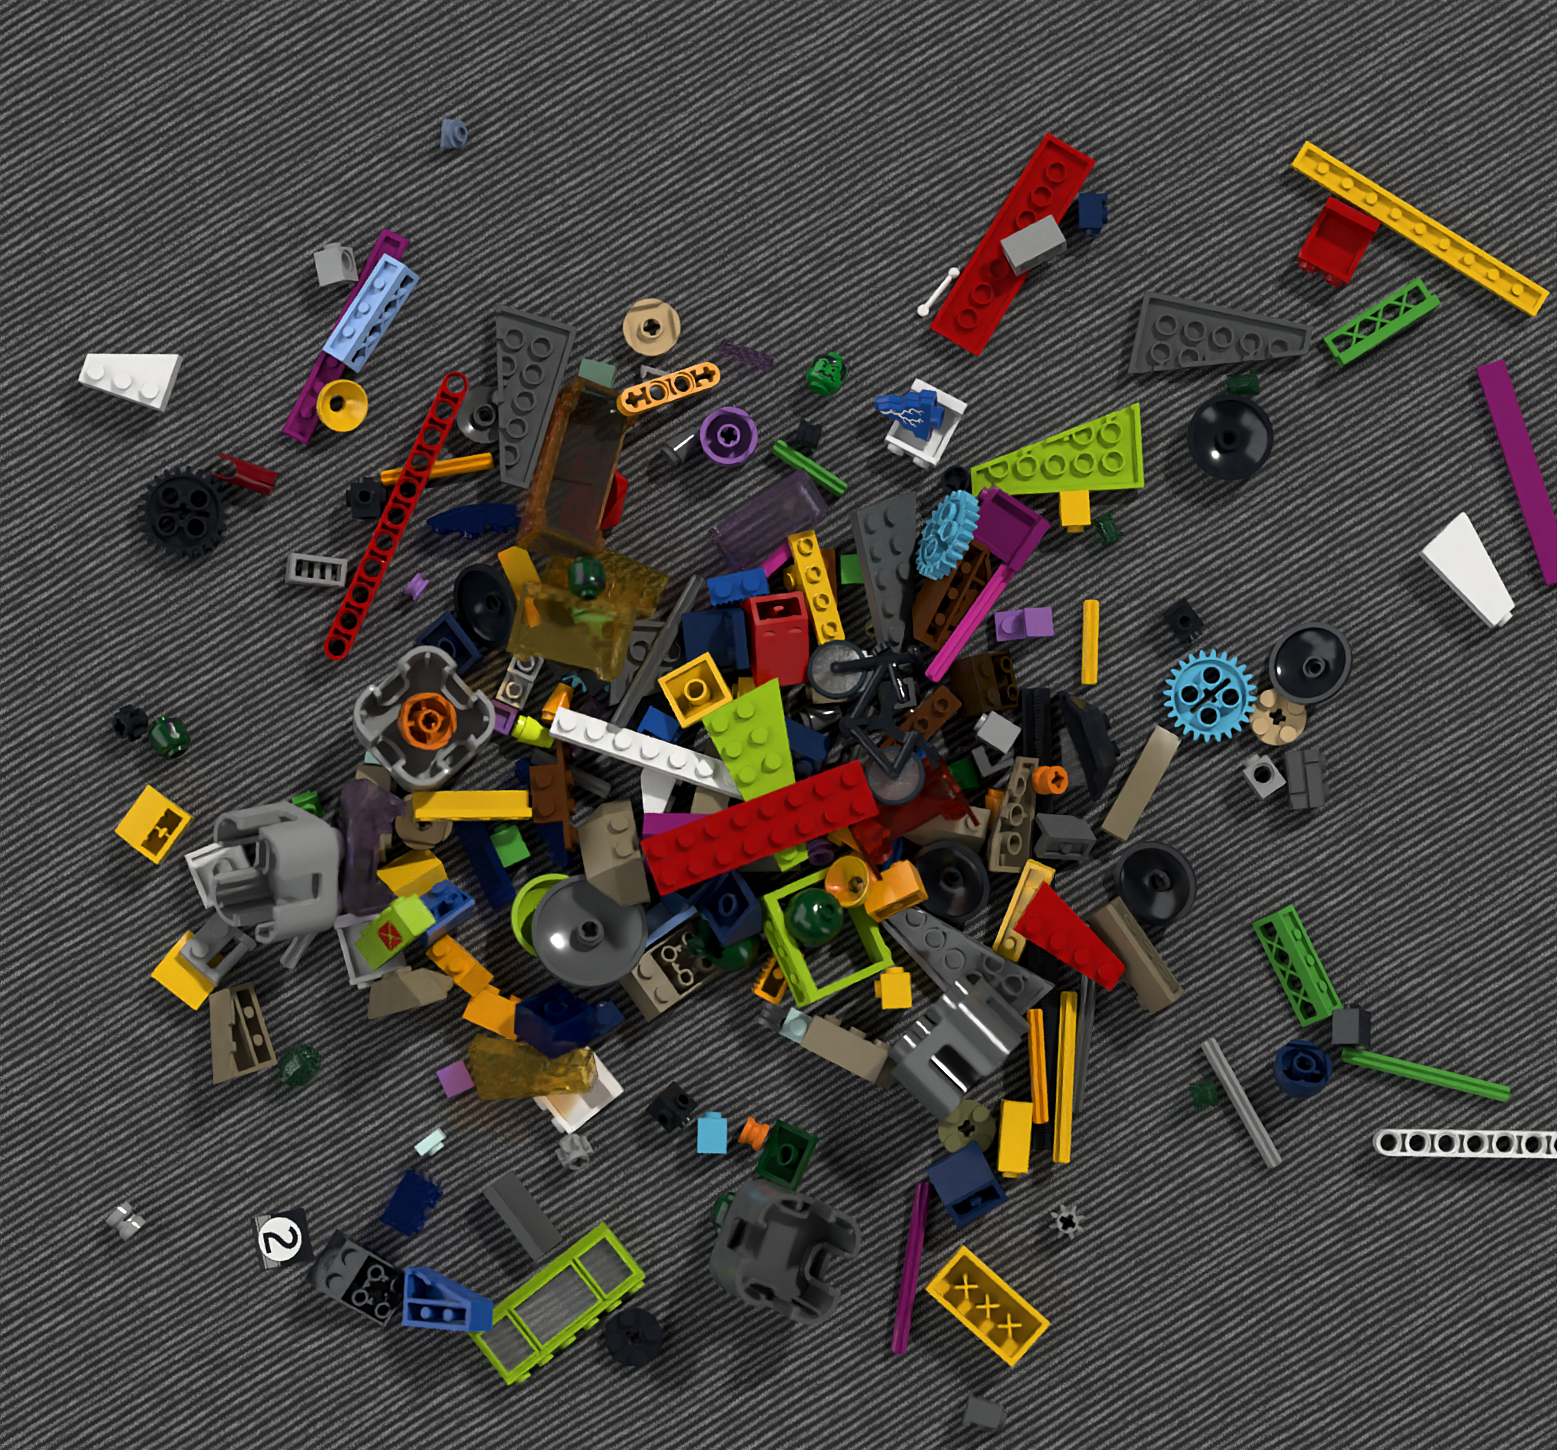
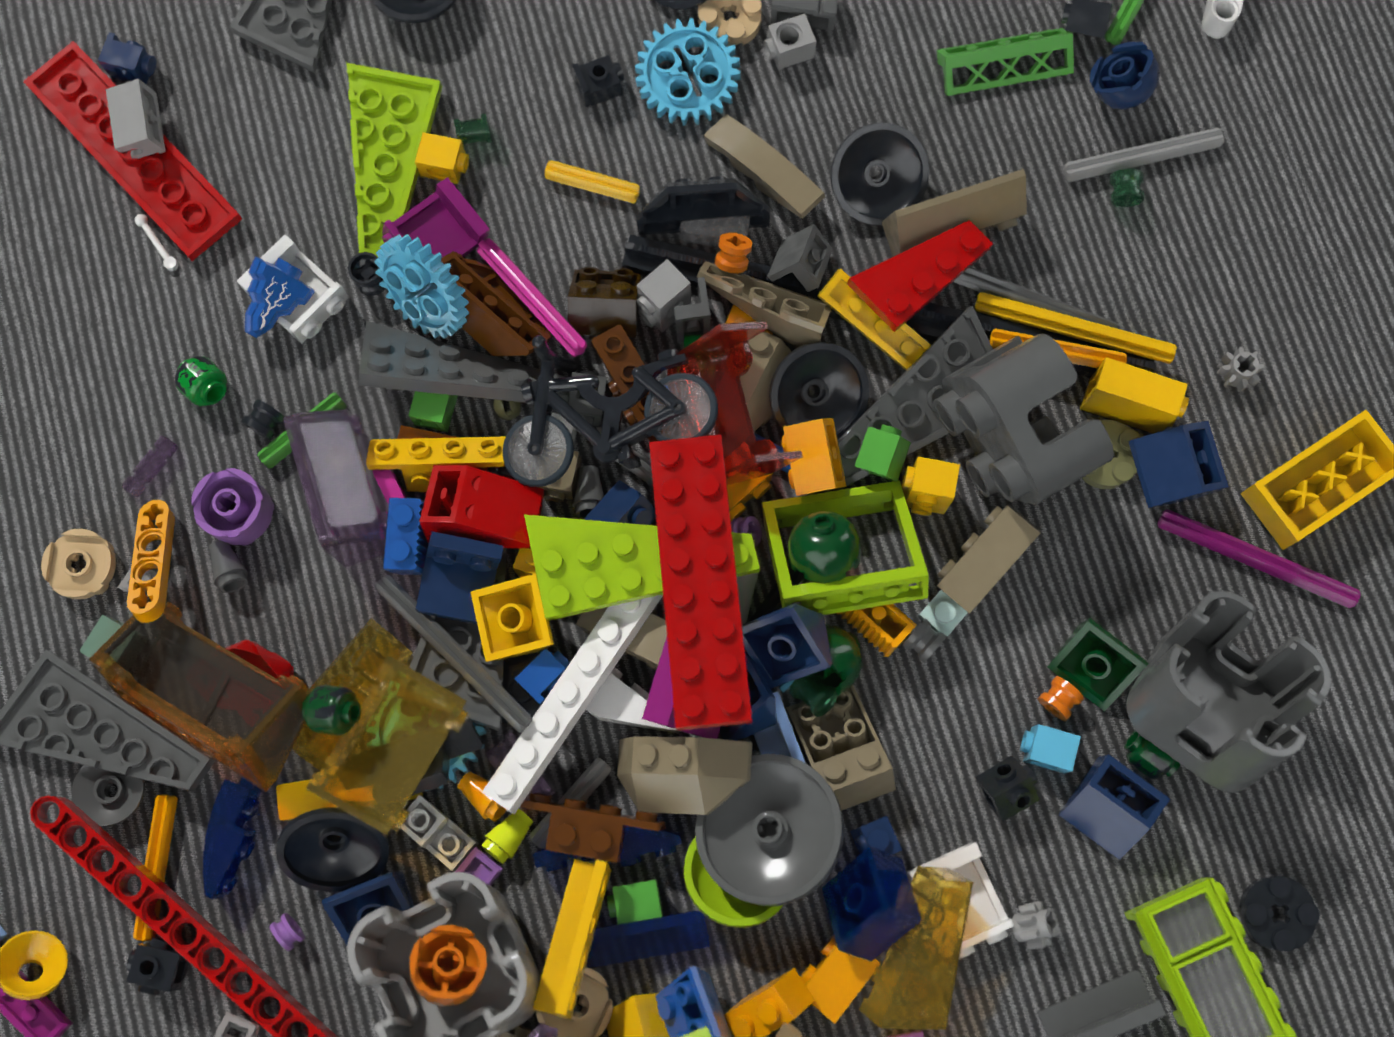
camera: 70 degrees left, 10 degrees down
(679, 1191) = (1113, 806): none -> dark blue slope
(841, 877) = (777, 503): yellow piece -> none
(910, 945) = (883, 452): none -> bright green brick
(1023, 624) = (550, 247): medium lavender slope -> none

